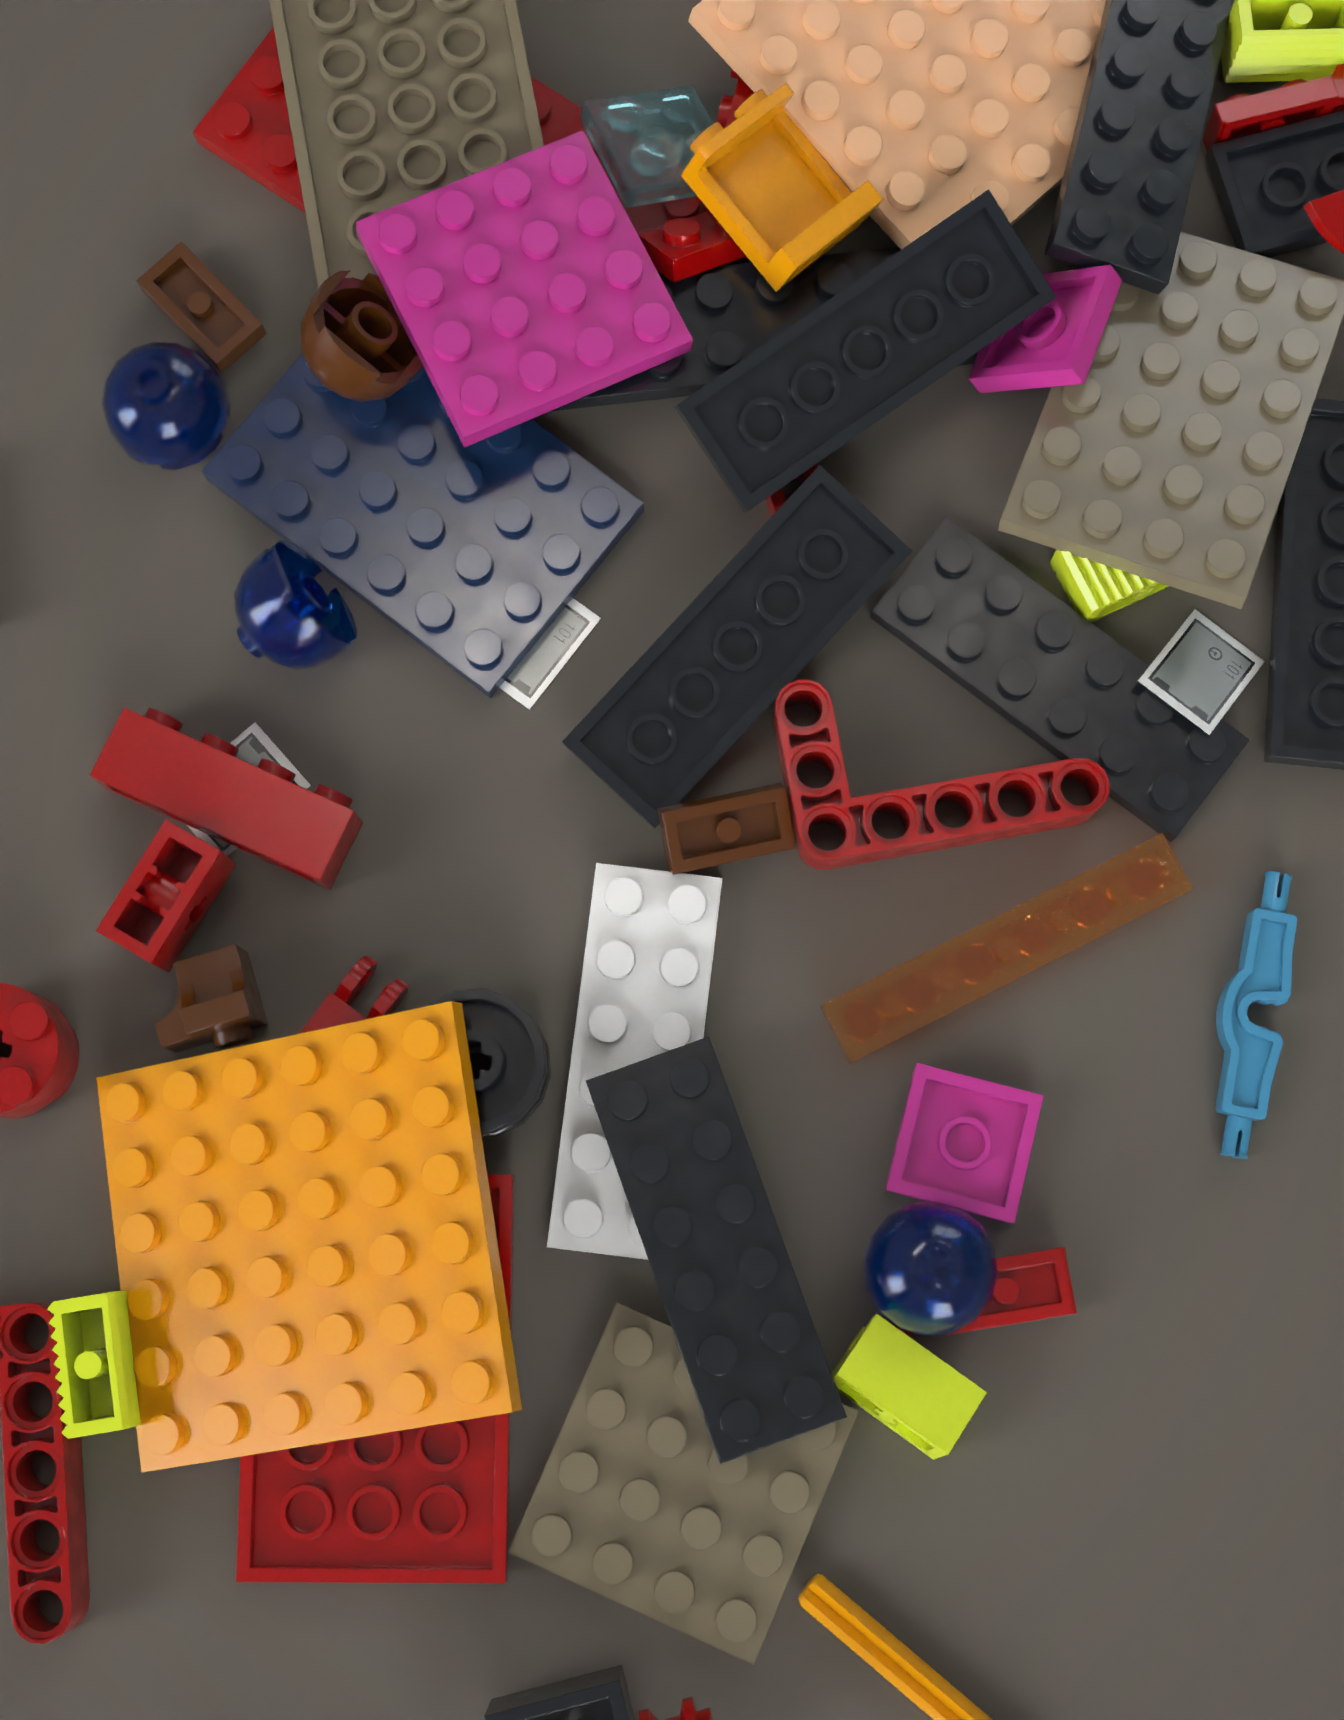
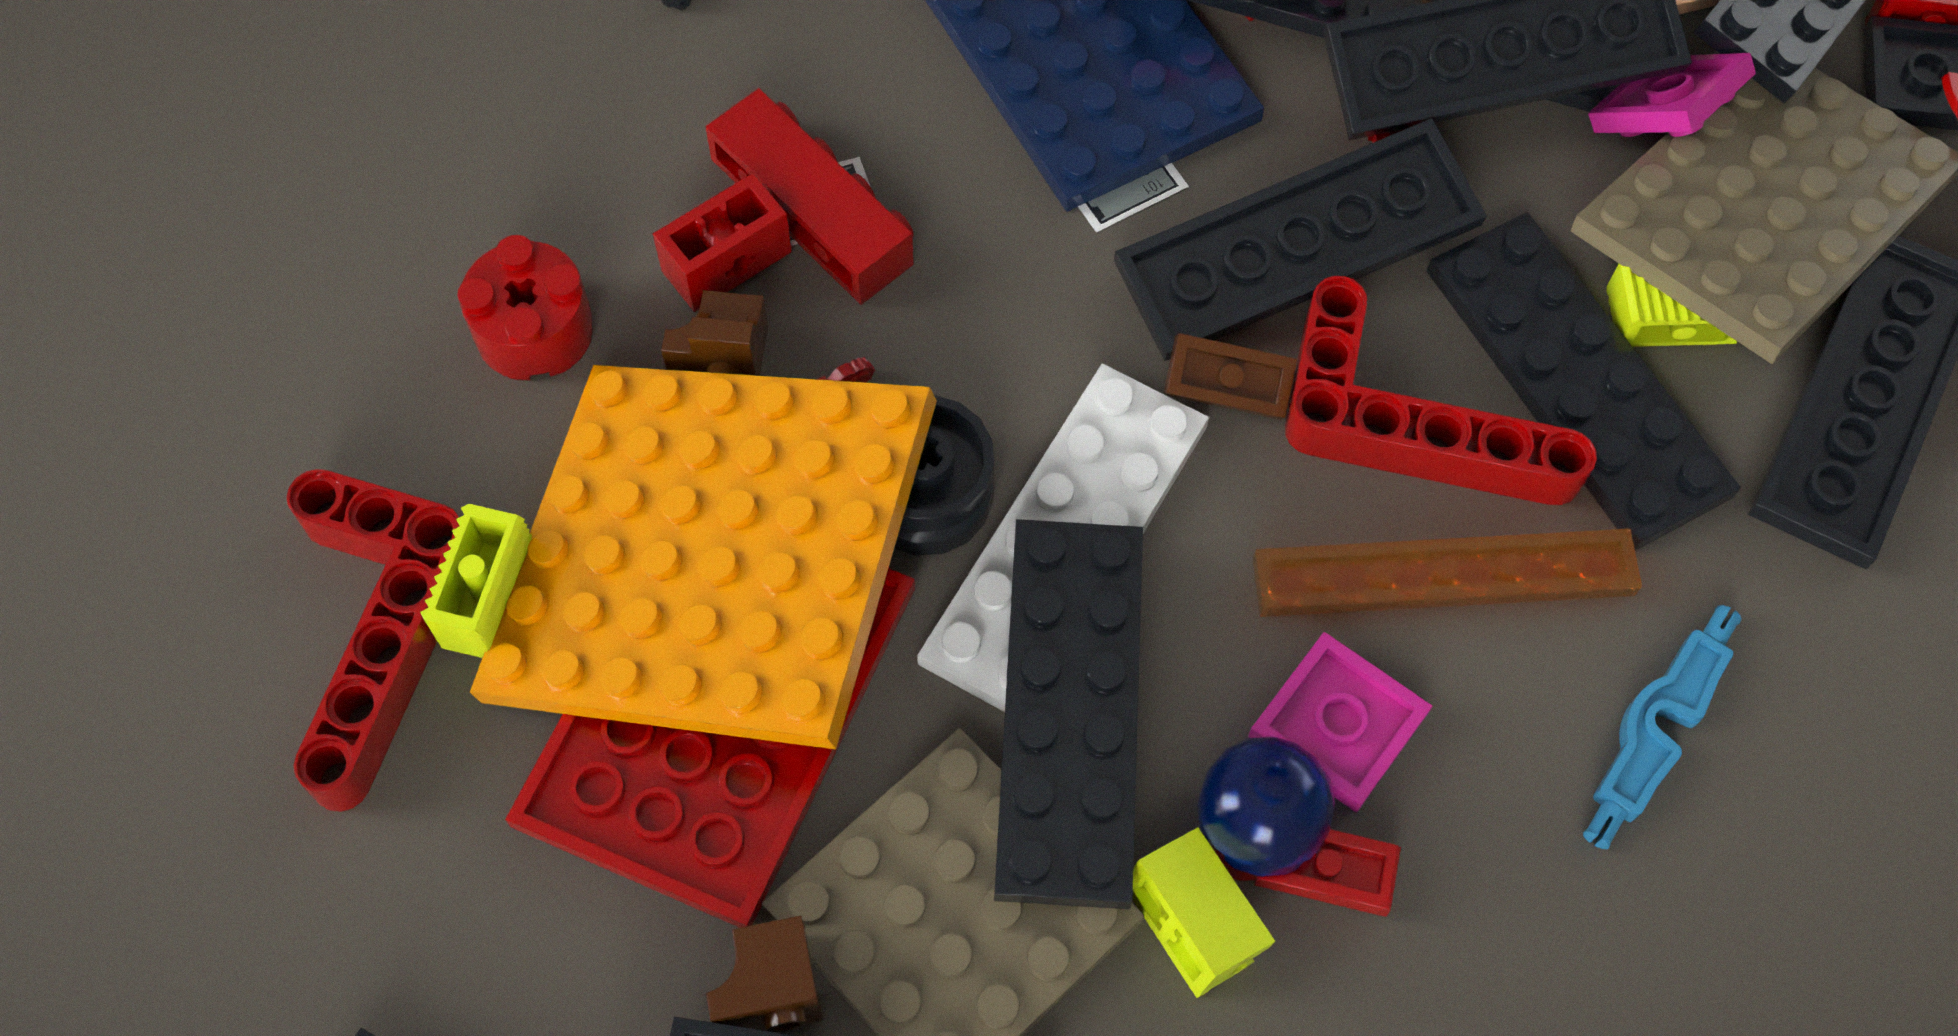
camera: 20 degrees right, 15 degrees down
(288, 612) = (928, 73): clear blue cylinder -> none
(554, 1634) = (770, 981): none -> reddish brown brick
(1201, 671) = (1715, 416): sticker -> none

